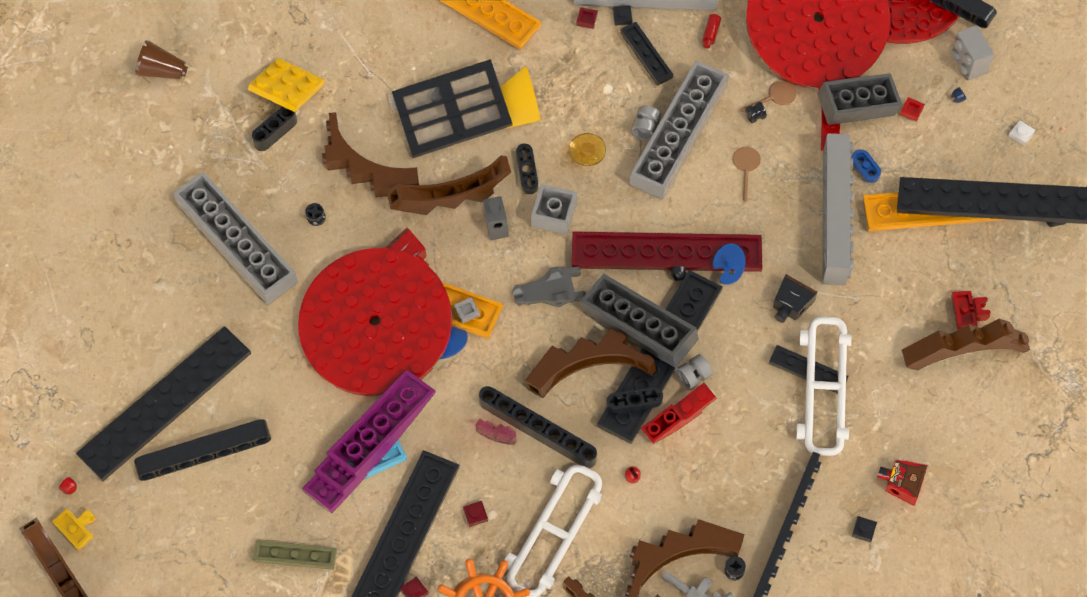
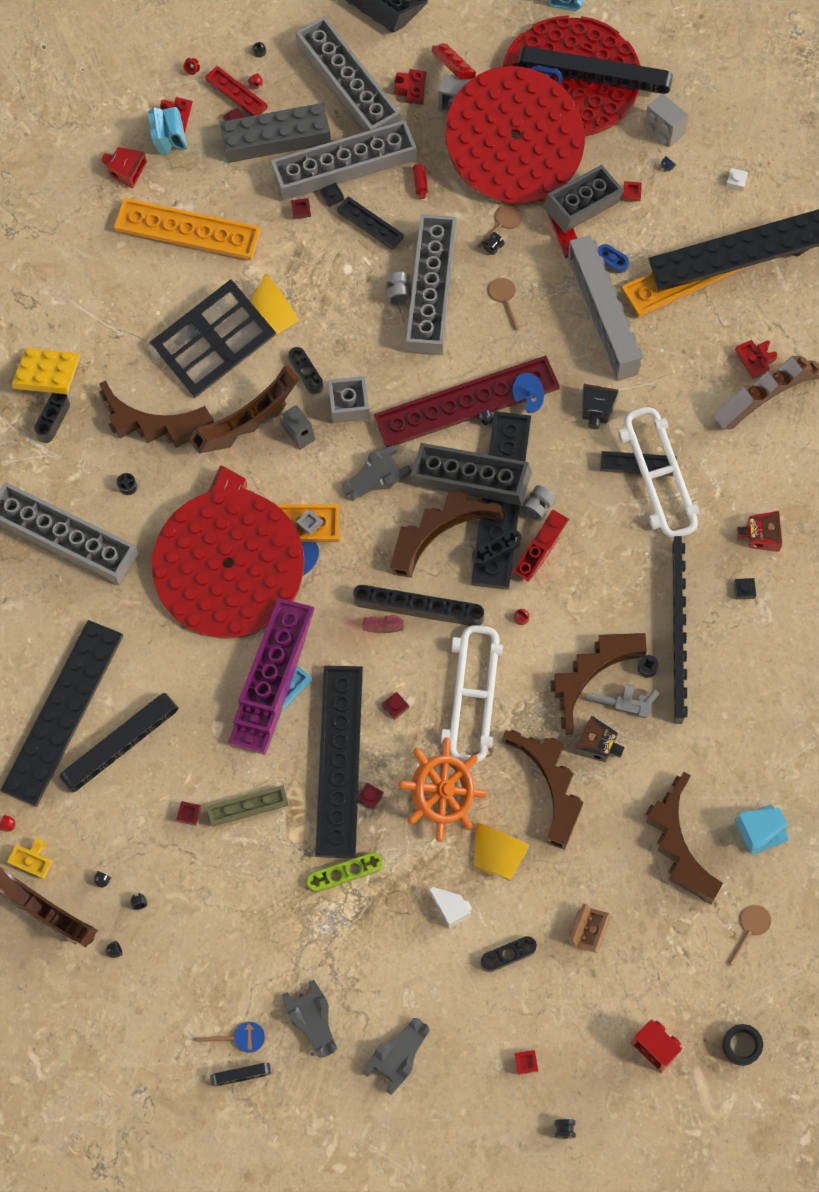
camera: 20 degrees left, 5 degrees up
(130, 571) = (101, 879): none -> black hinge
(237, 540) = (188, 813): none -> dark red plate
(590, 143) = (354, 325): clear yellow dish -> none

